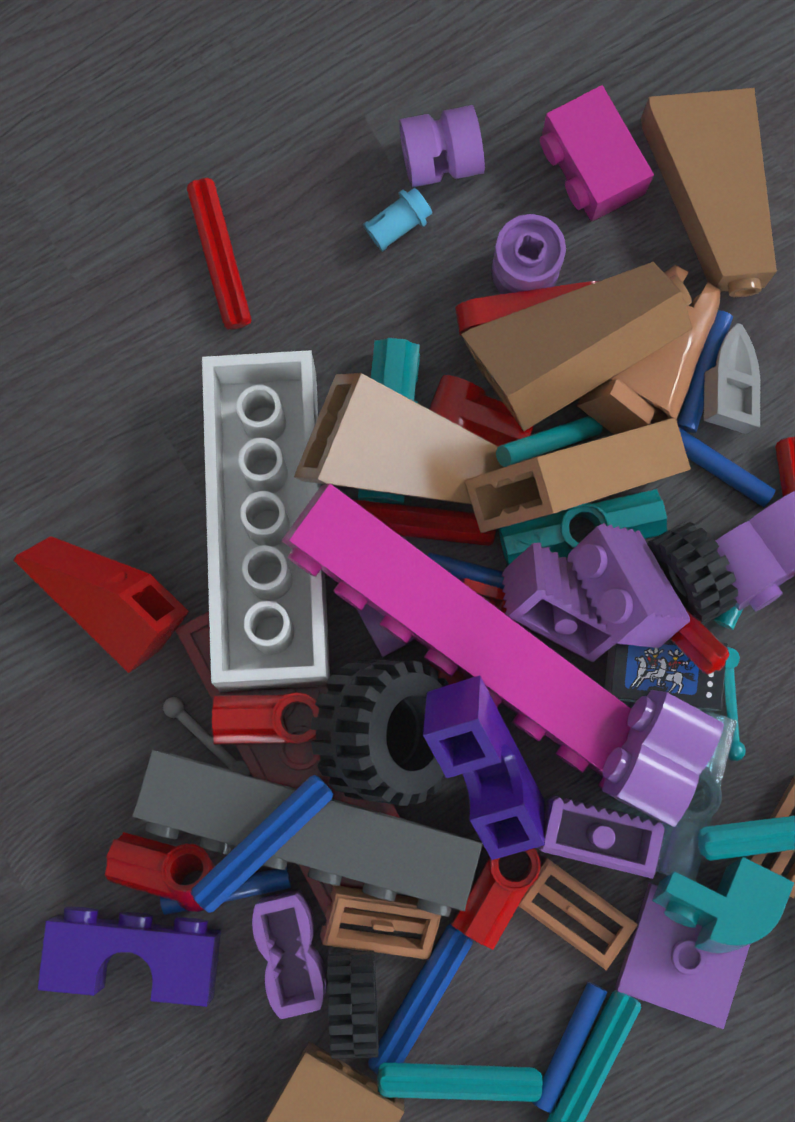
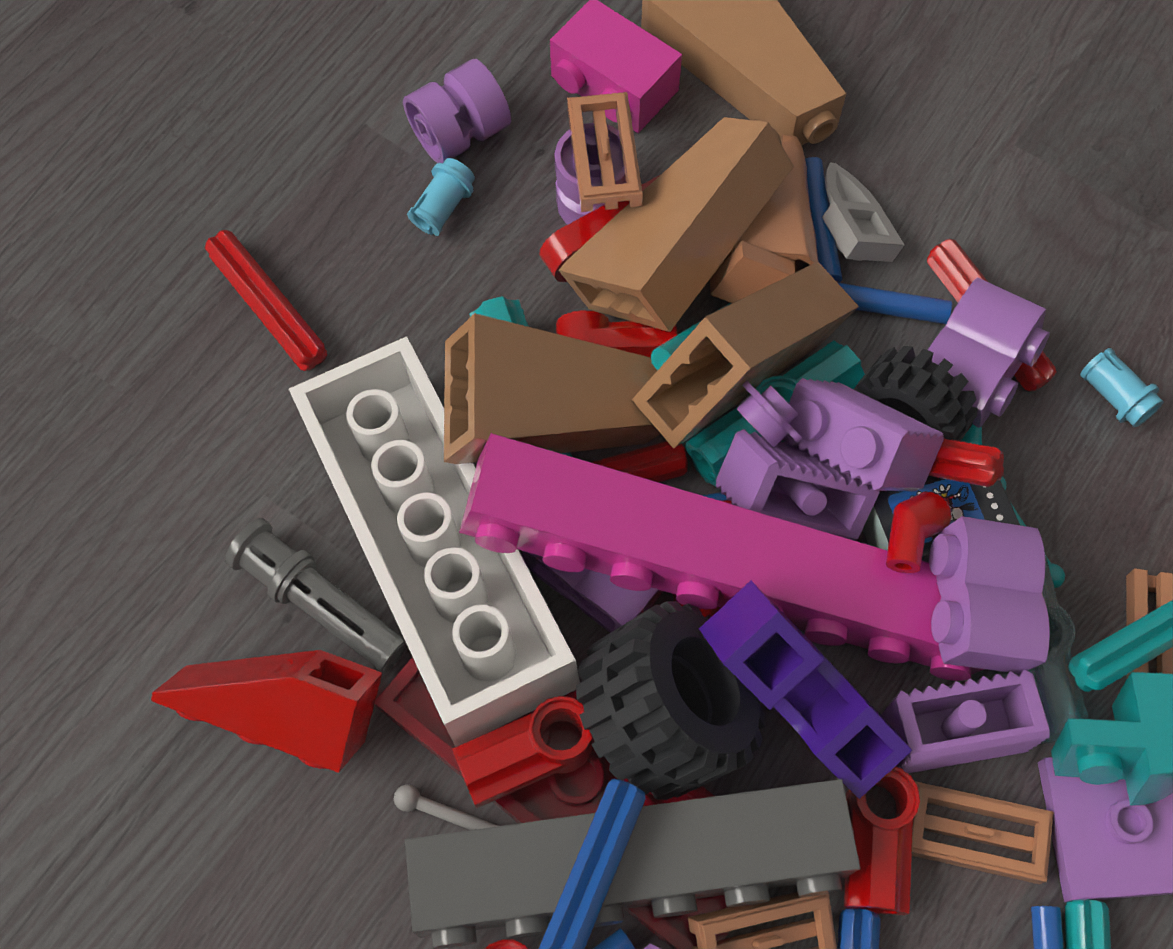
camera: 25 degrees left, 15 degrees down
(153, 505) = (288, 582): none -> dark grey pin
(527, 294) = (609, 191): none -> nougat tile
(560, 546) = (769, 414): none -> medium lavender plate
(633, 676) = (913, 523): none -> red arm

